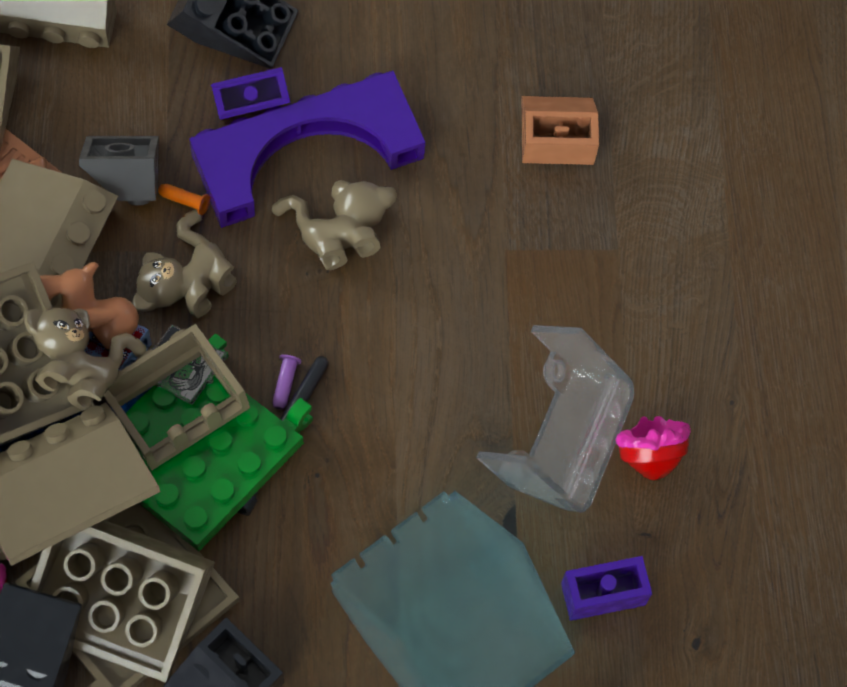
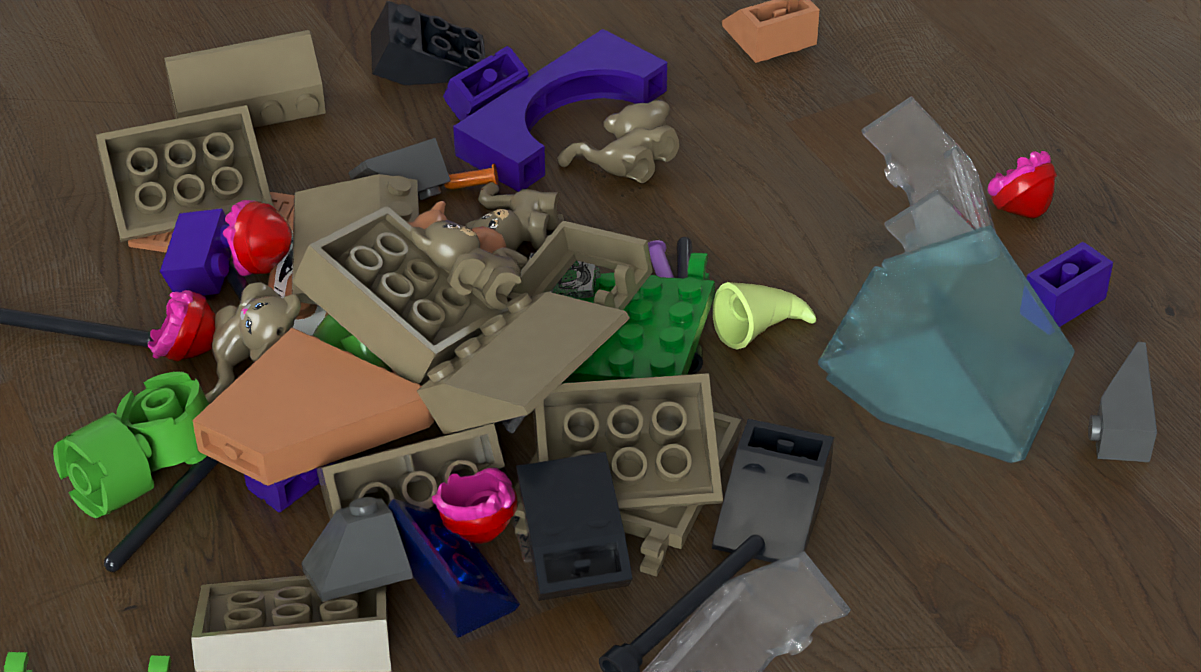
camera: 20 degrees left, 25 degrees down
(321, 476) = (747, 310): none -> yellowish green hat

